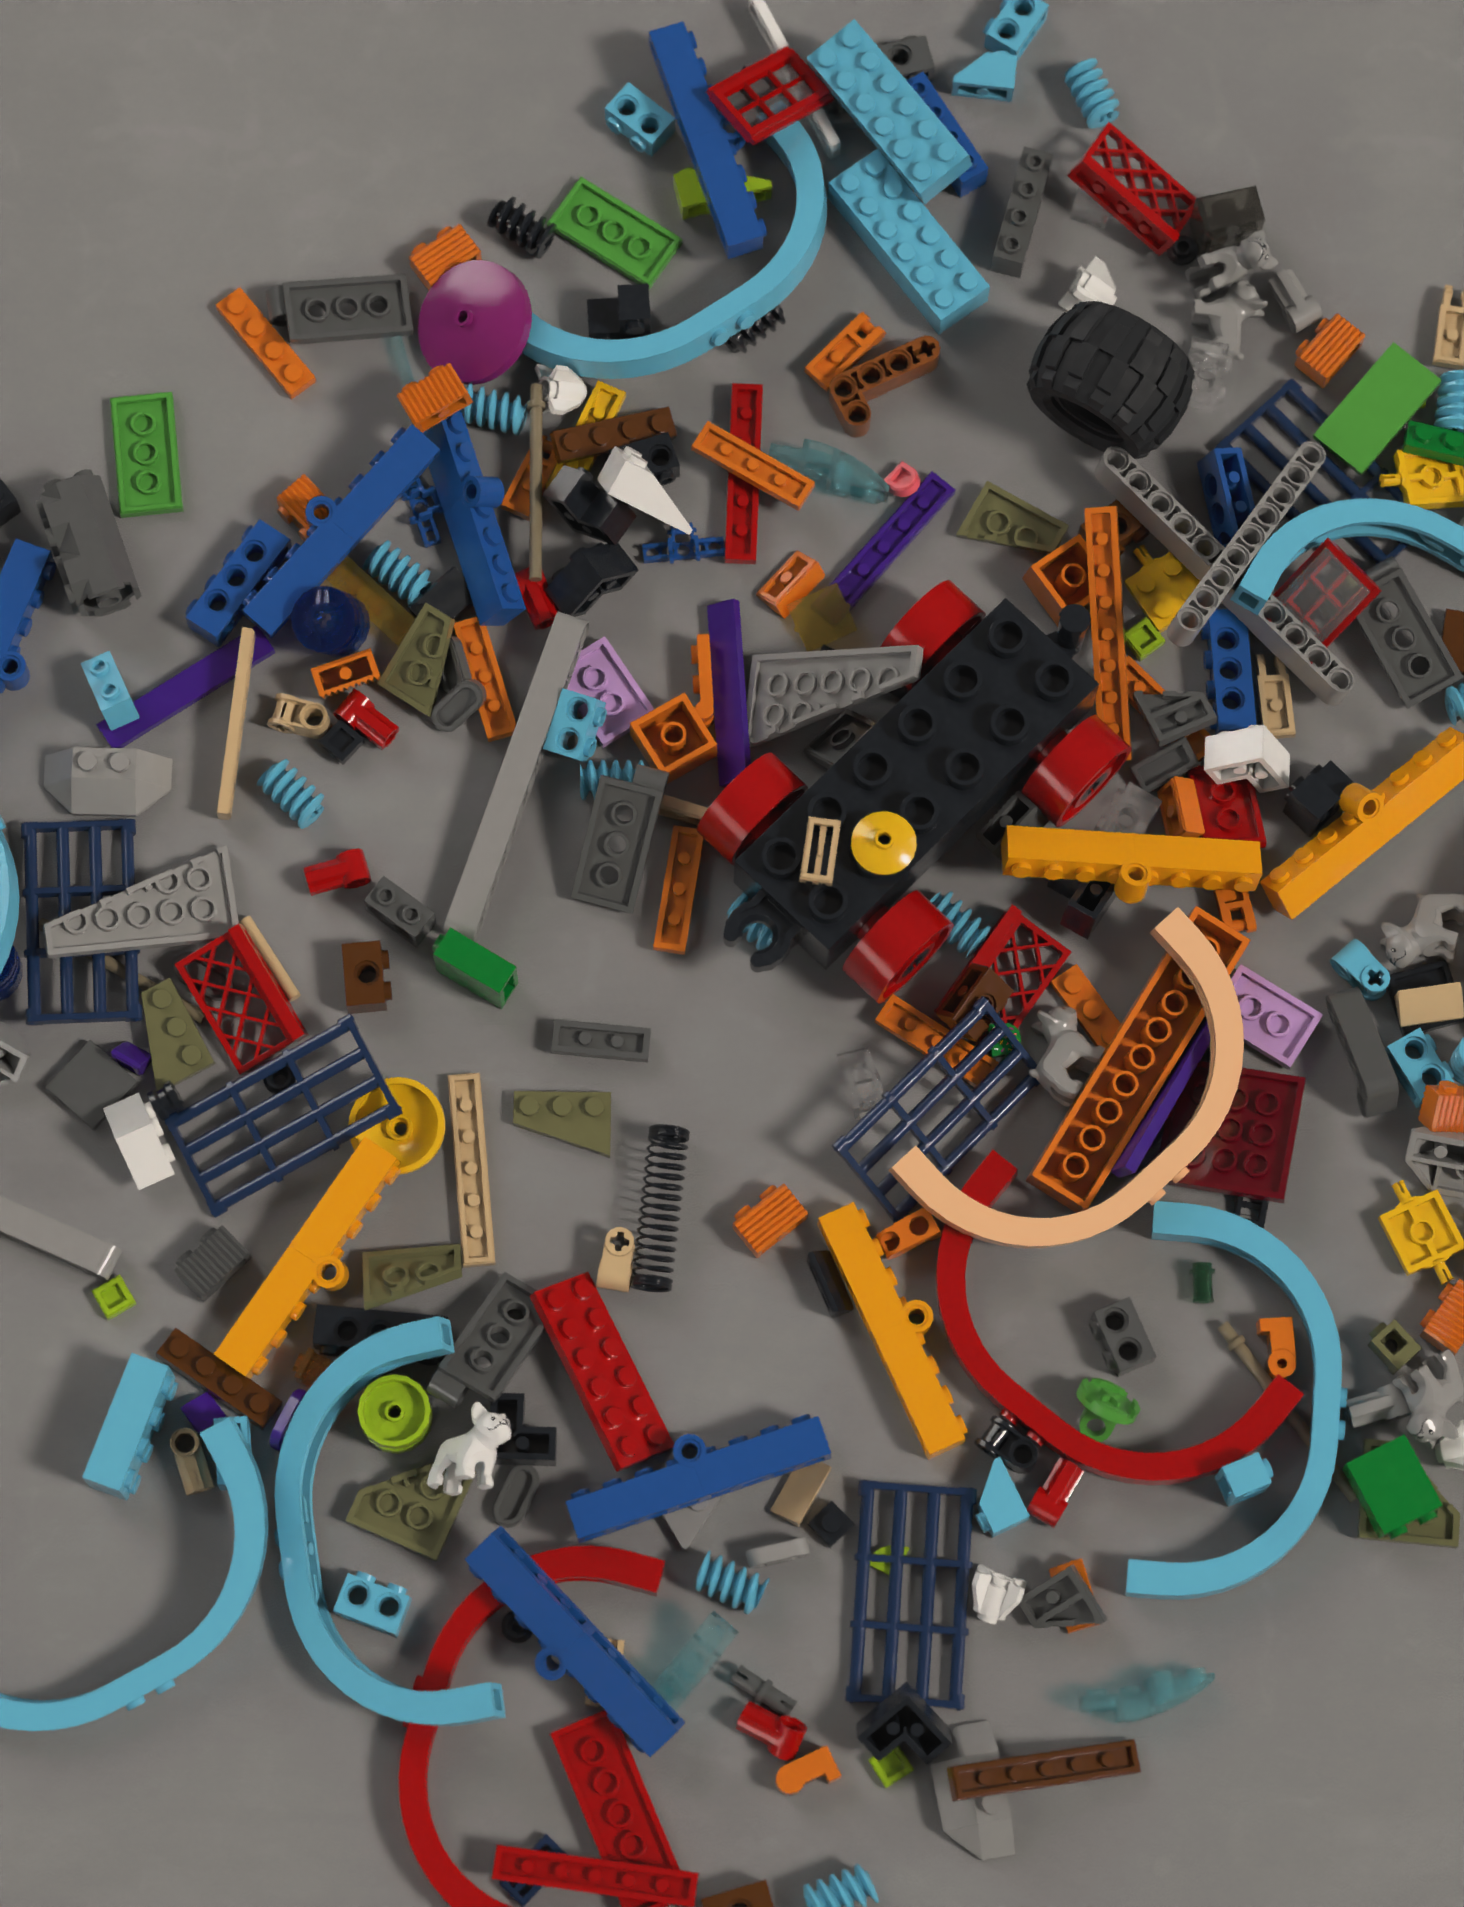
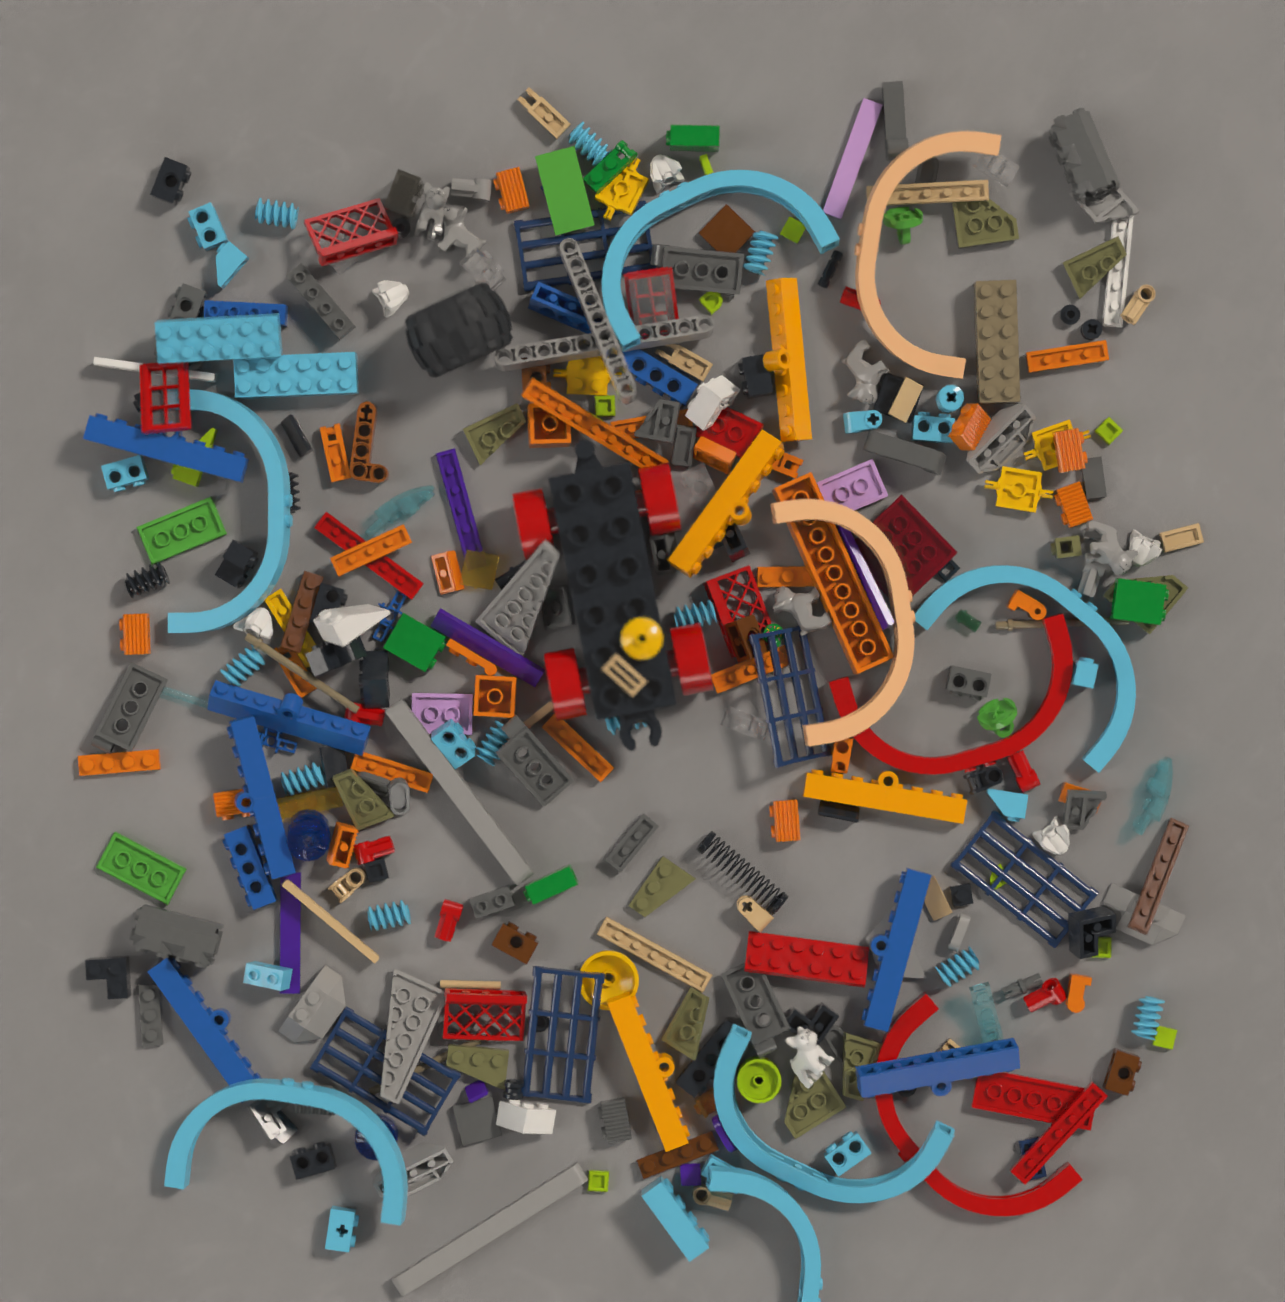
camera: 55 degrees left, 15 degrees up
(434, 397) = (222, 699): orange brick -> none
(475, 321) = (187, 645): magenta dish -> none
(521, 1519) = (856, 1052): none -> olive wing
(672, 599) = (415, 643): none -> green brick
(833, 292) = (296, 435): none -> black slope
(903, 480) = (430, 473): coral tile -> none
(1372, 683) = (711, 301): none -> lime tile

